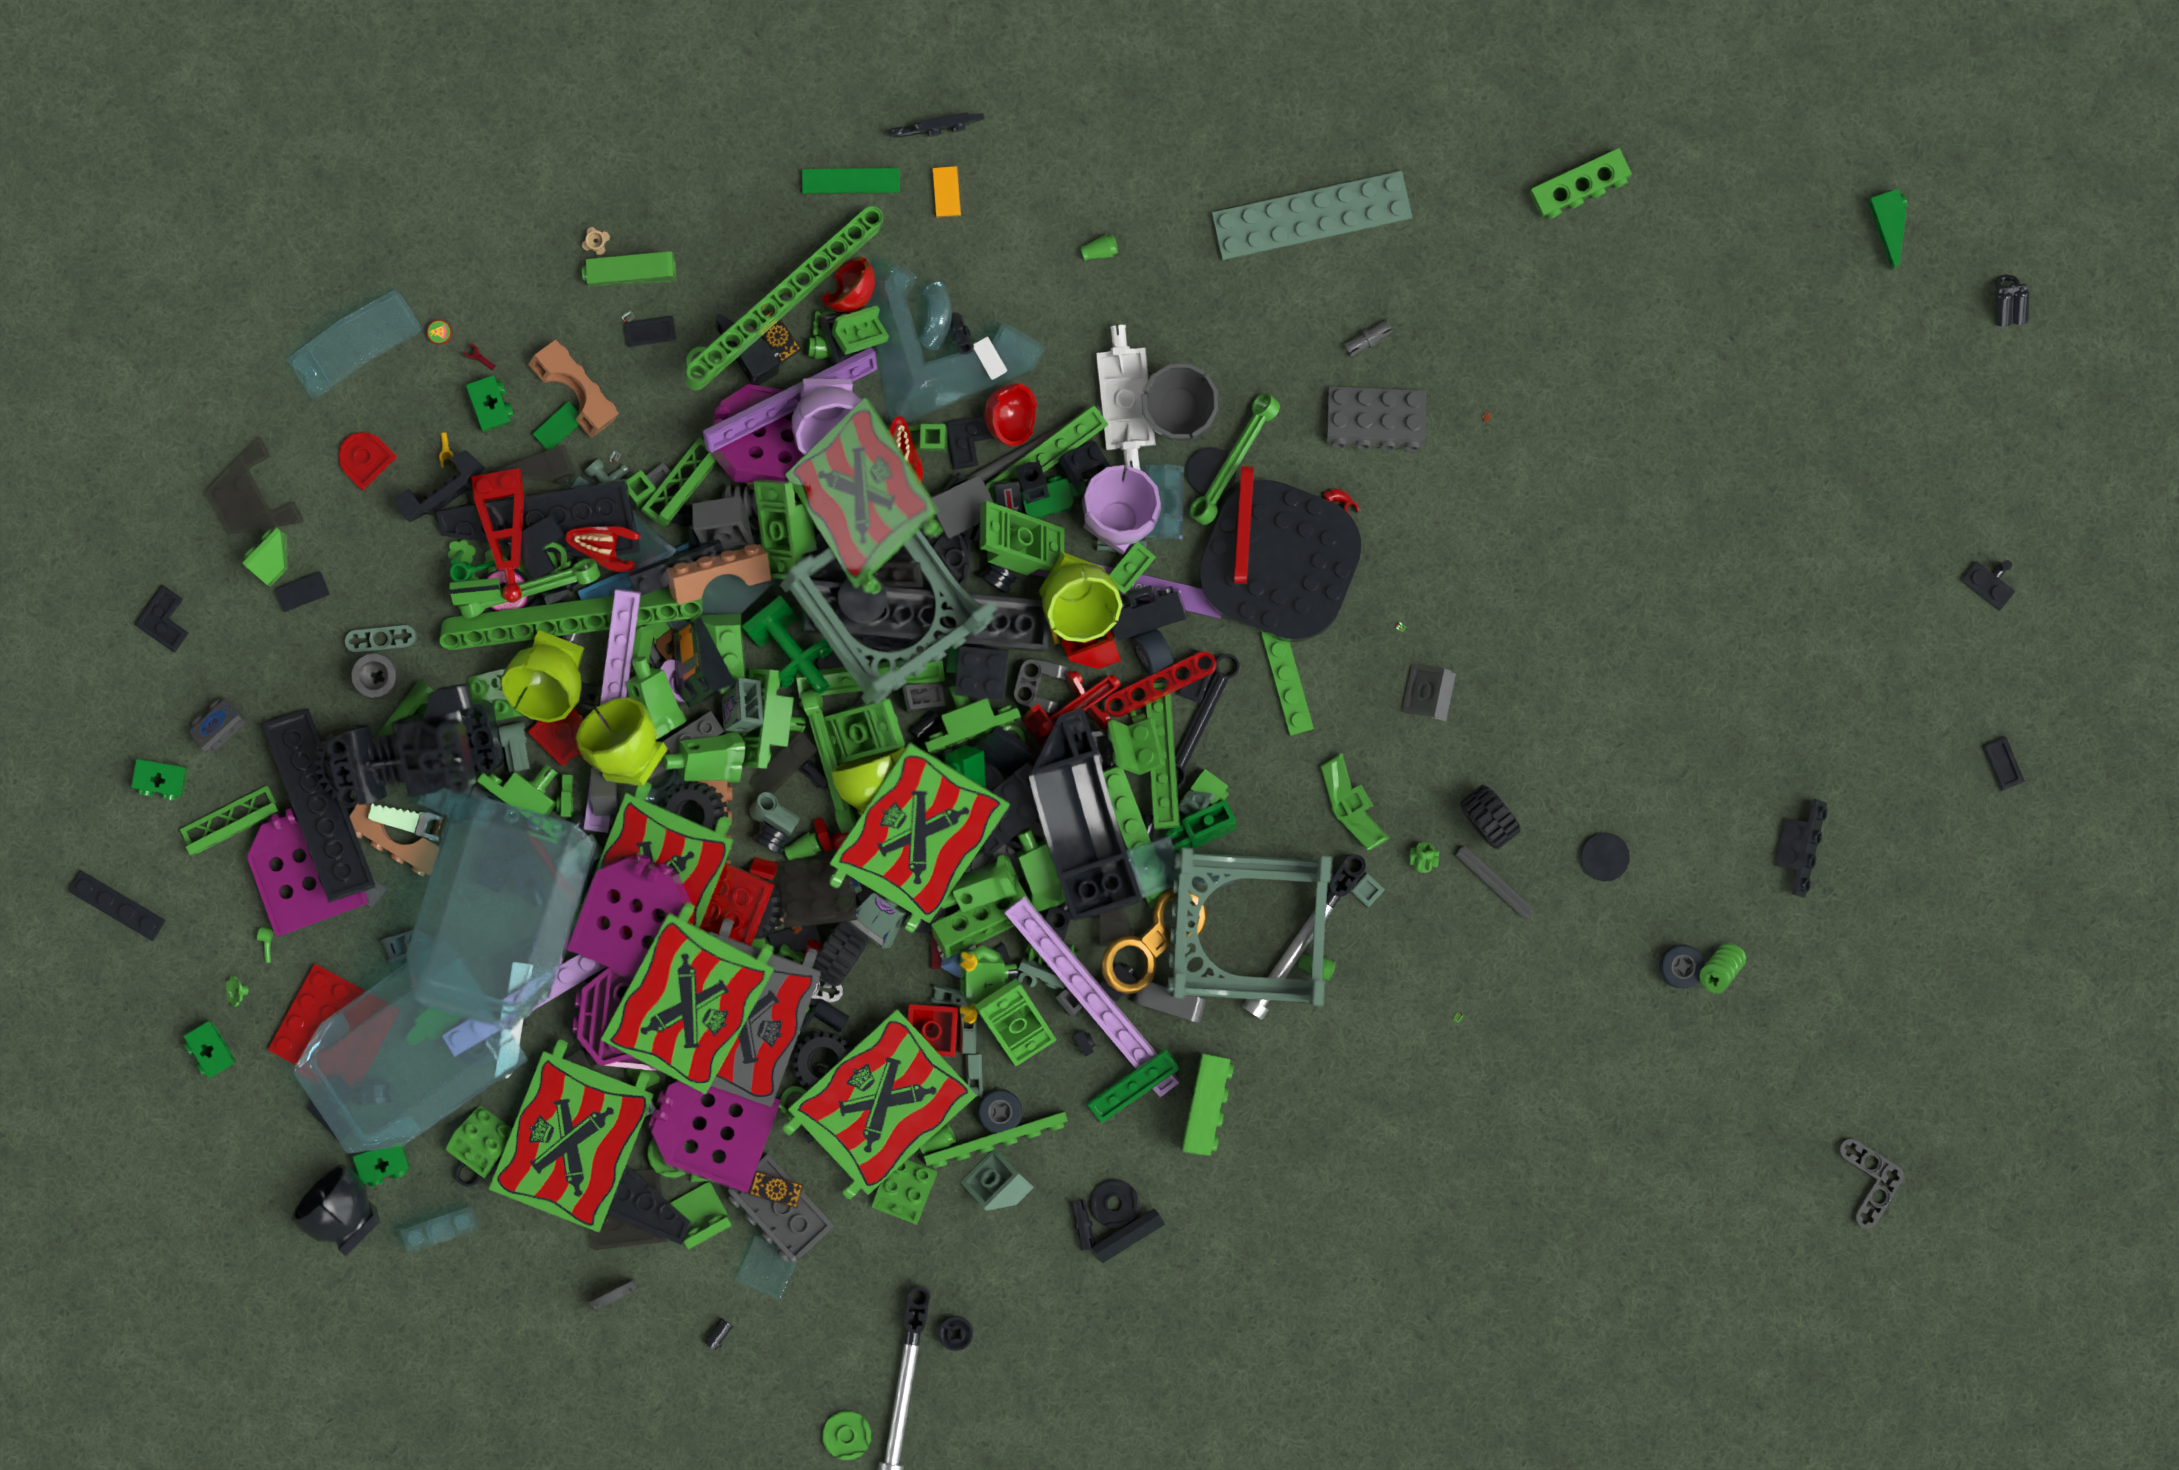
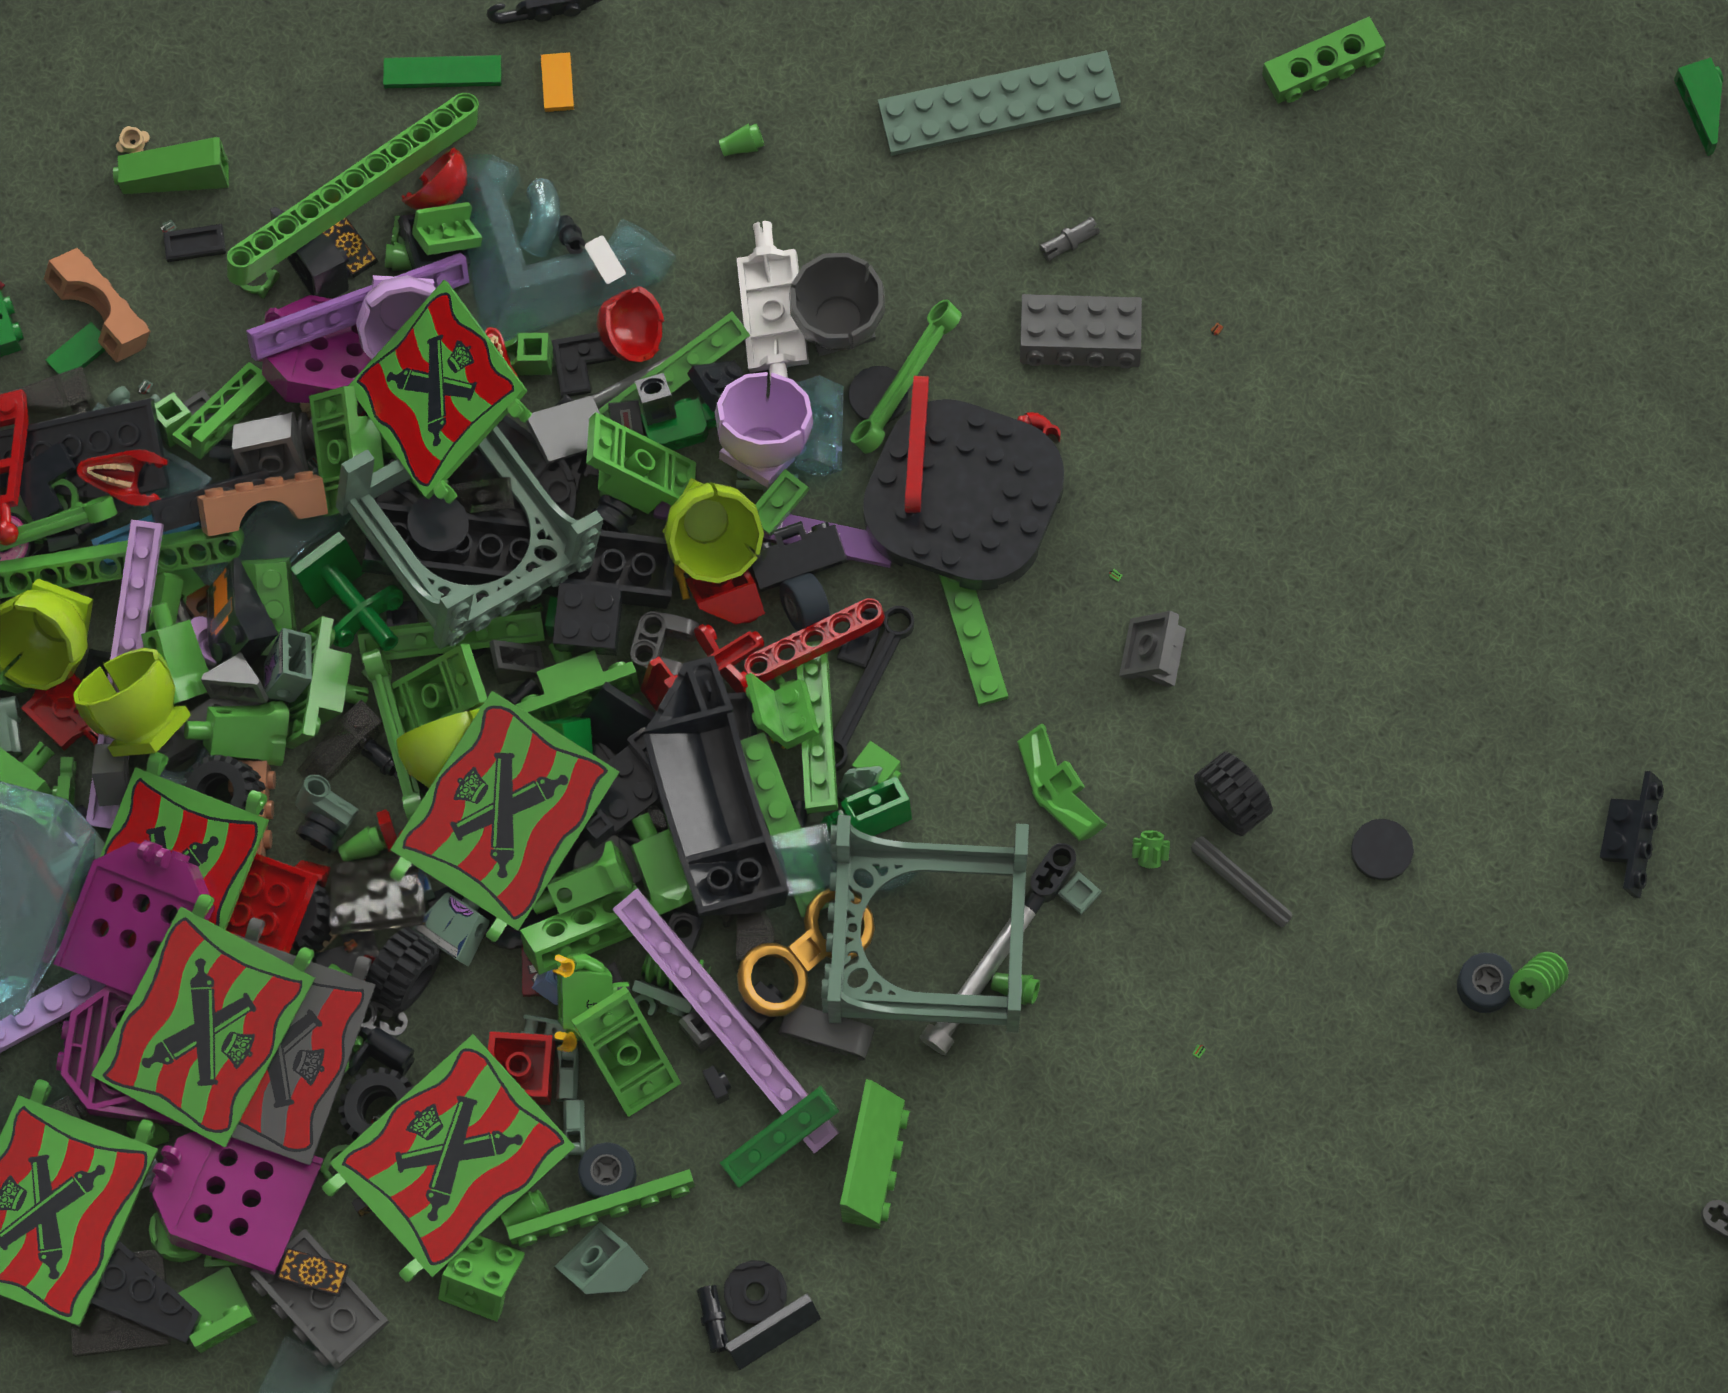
camera: 10 degrees right, 15 degrees down
(701, 719) = (234, 681): none -> dark grey slope

